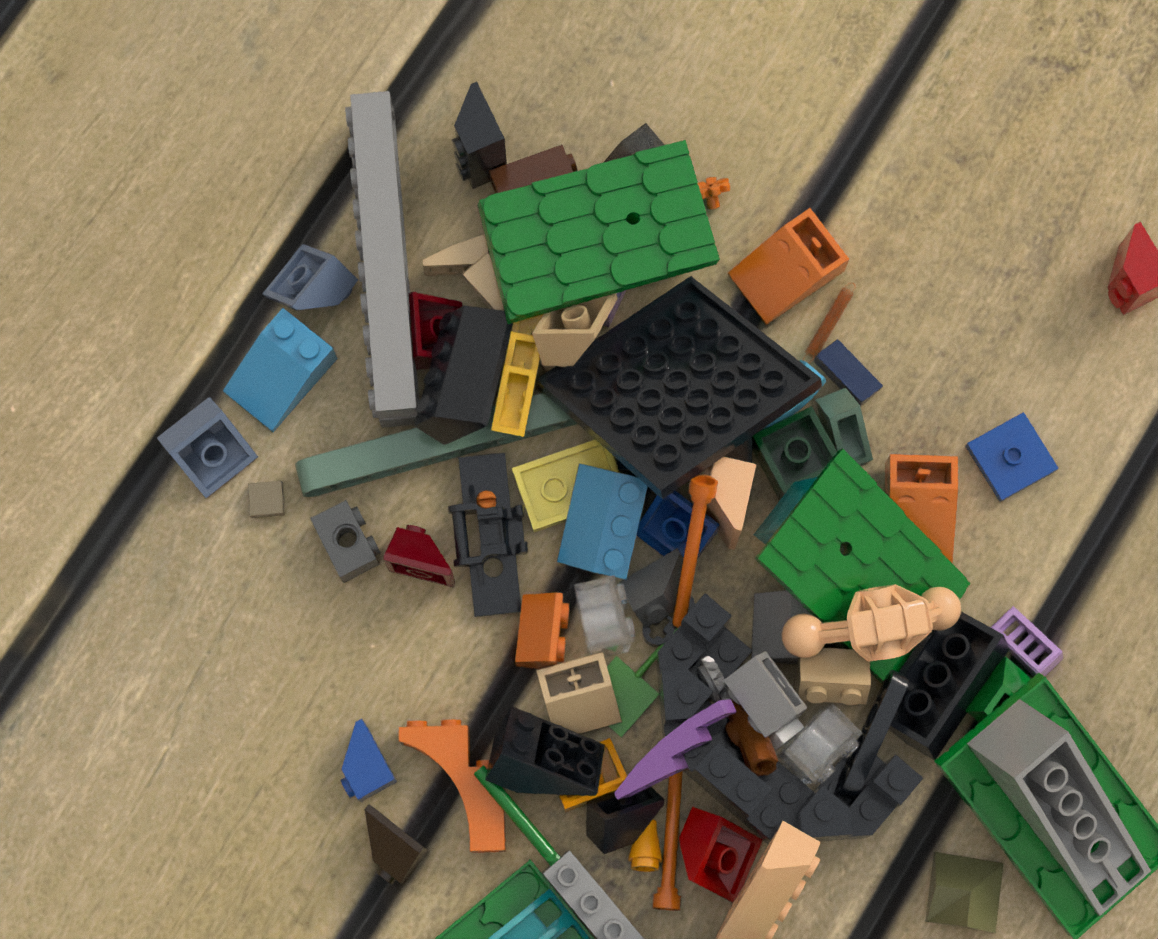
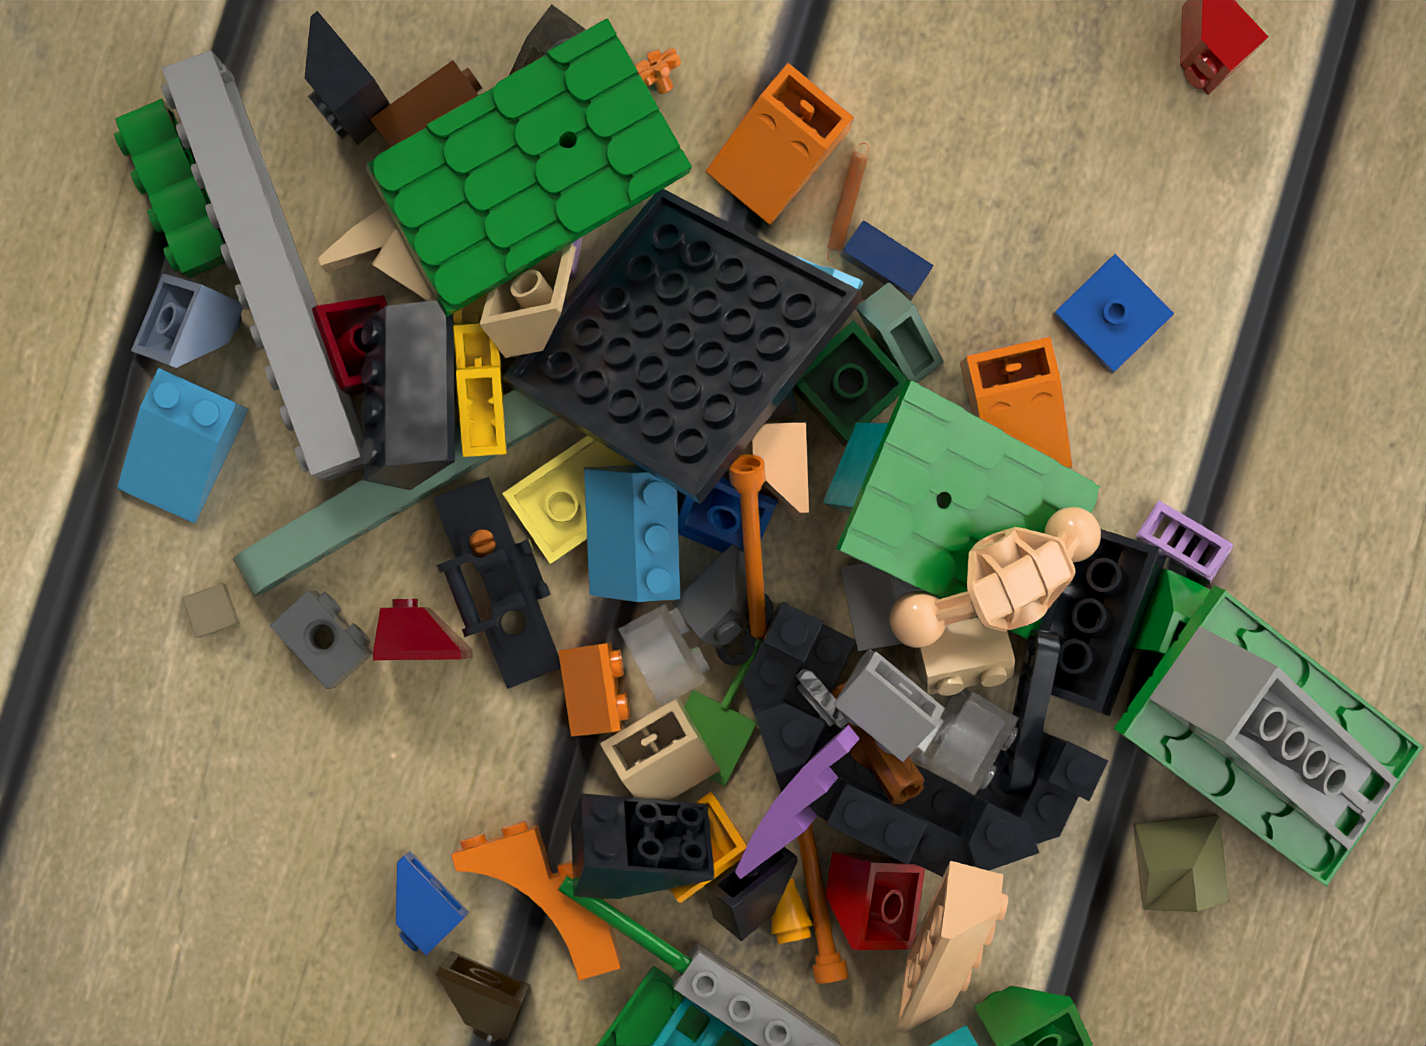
camera: 15 degrees left, 10 degrees up
(207, 447) = (117, 567): sand blue slope -> none
(330, 184) = (167, 178): none -> green brick

